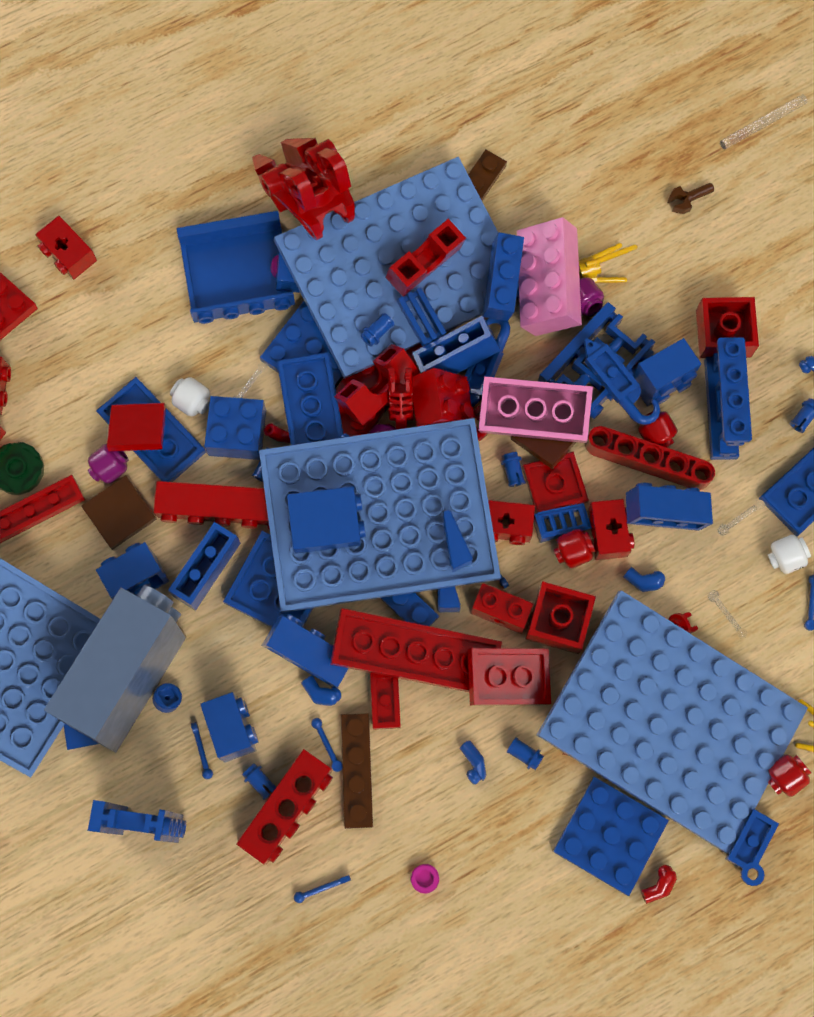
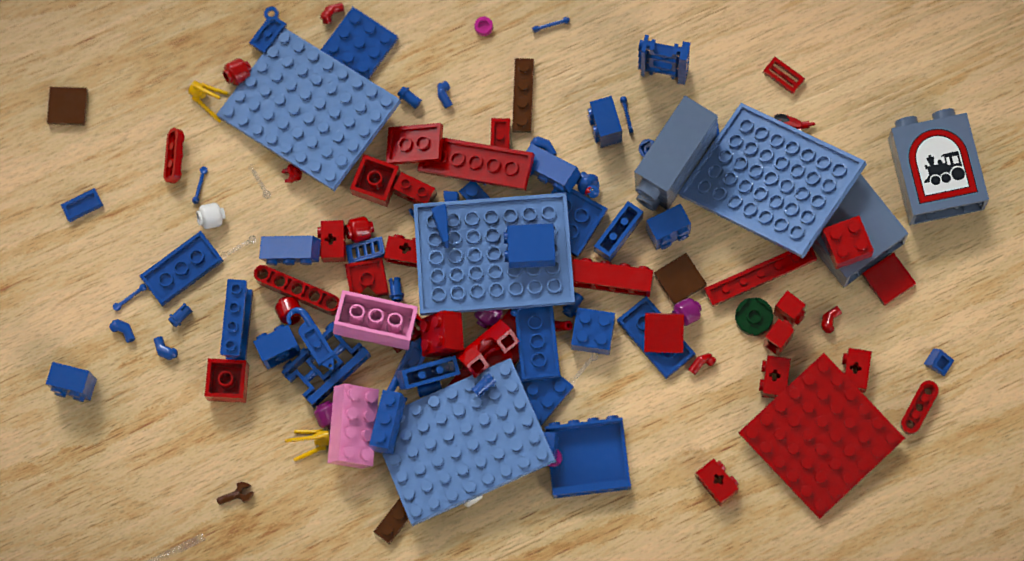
camera: 165 degrees left, 0 degrees up
(81, 405) = (700, 361): none -> red arm
(190, 396) = (625, 357): white head -> none
(253, 635) = (588, 185): none -> blue animal
(253, 839) = (557, 98): red brick -> none
(258, 779) = (588, 91): blue pin -> none
(308, 183) = (542, 518): red piece -> none
(337, 766) = (536, 99): blue hinge -> none
(400, 398) = (471, 332): red hinge -> none
(402, 301) = (444, 382): blue tile -> none
(418, 265) = (454, 426): red arch -> none
(645, 582) = (312, 204): blue arm -> none

